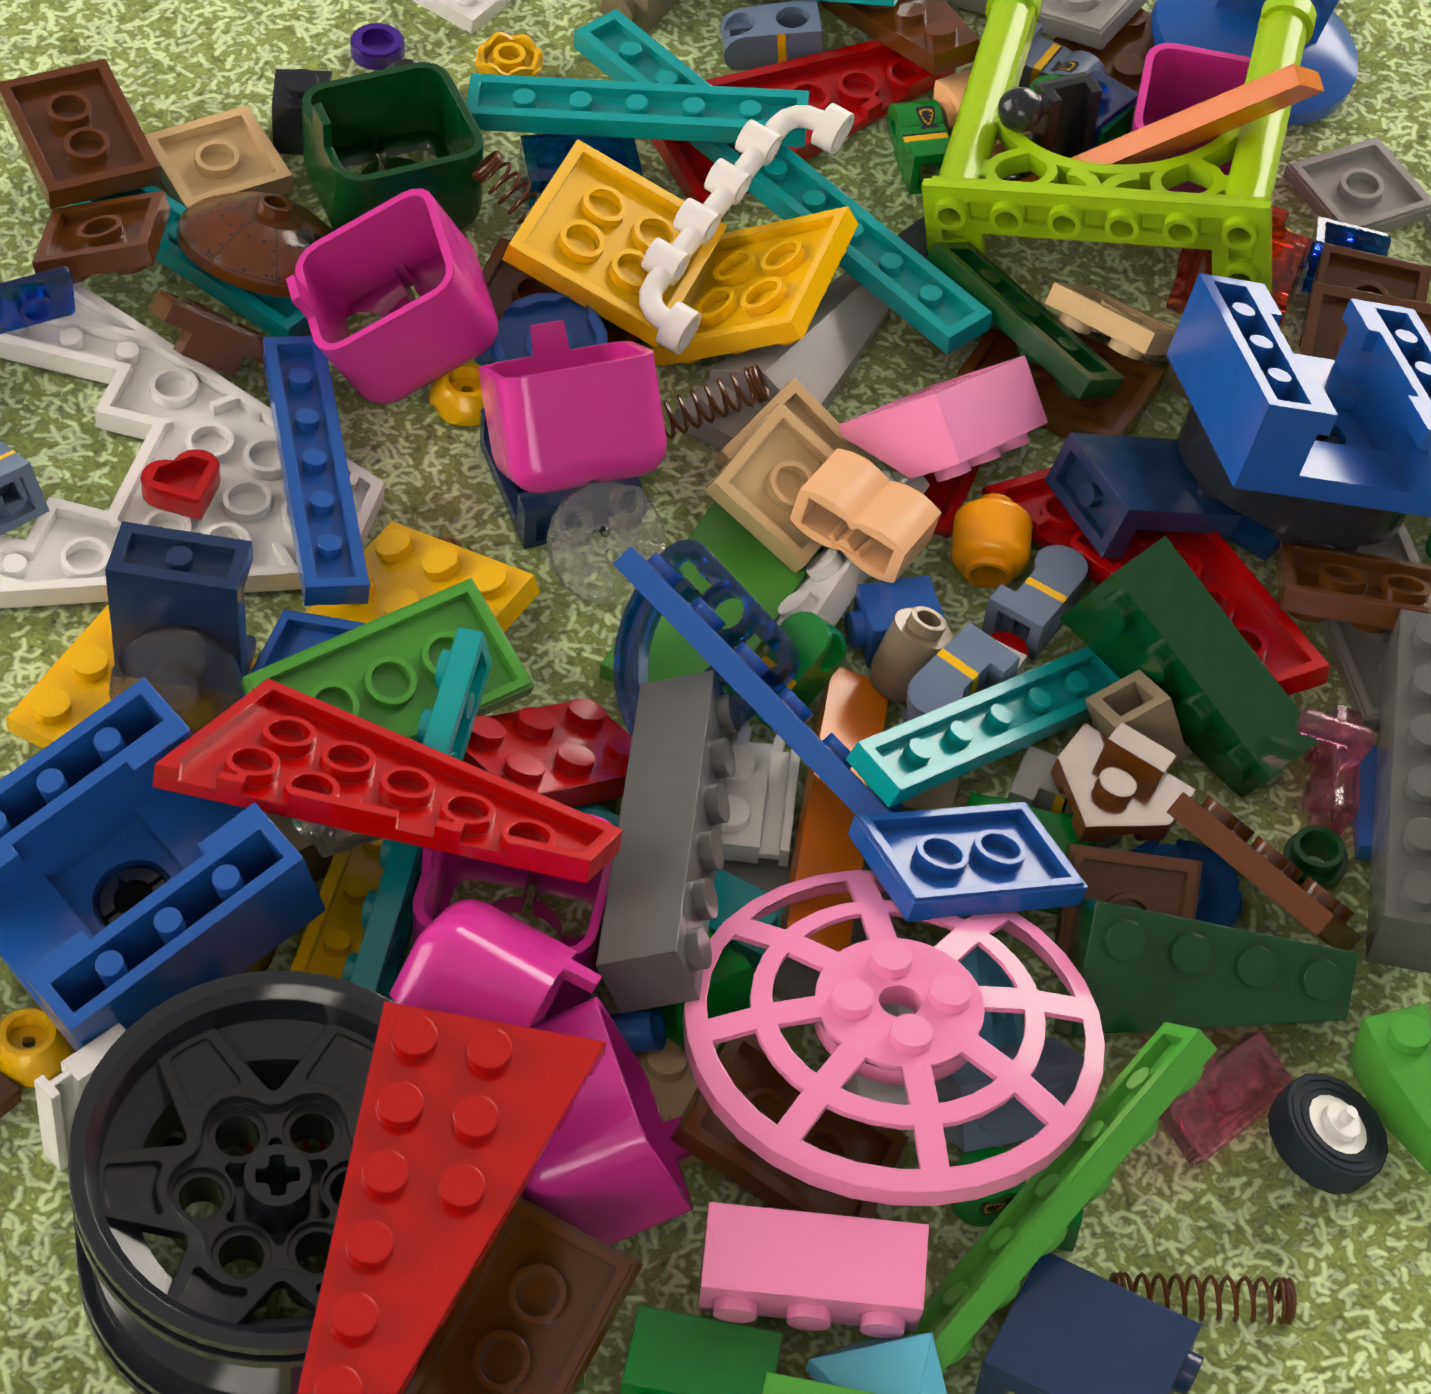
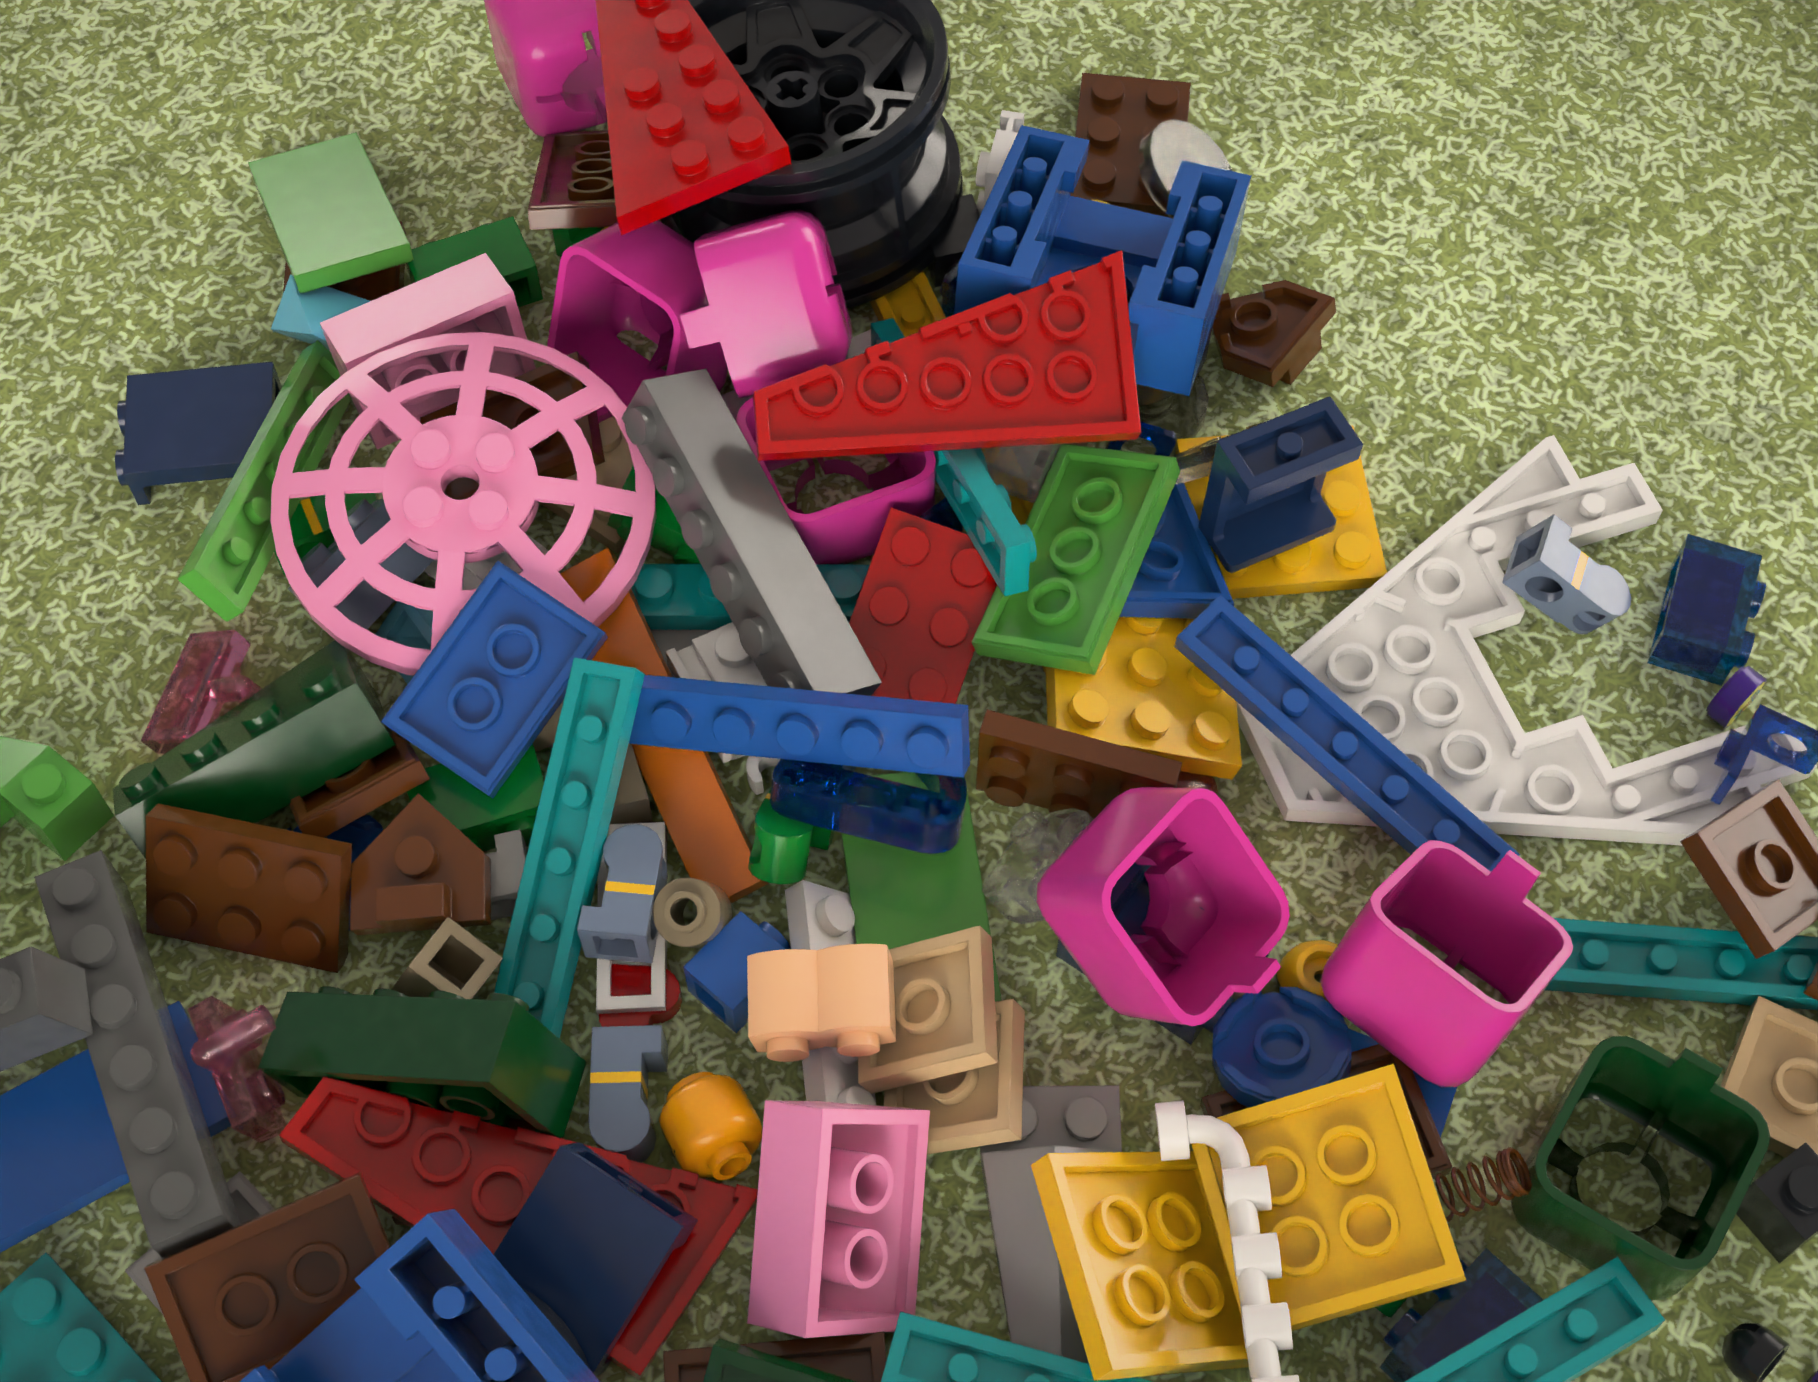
camera: 150 degrees right, 10 degrees up
(182, 484) = (1434, 681): red tile -> none
(207, 334) = (1588, 854): reddish brown plate -> none
(249, 238) = (1617, 955): reddish brown dish -> none
(570, 588) = (1061, 768): none -> reddish brown plate
(758, 391) = (1054, 1098): reddish brown piece -> none
(1285, 1291) = (80, 571): reddish brown piece -> none
(1324, 844) = (219, 965): dark green plate -> none
(1327, 1133) = (94, 705): black wheel -> none

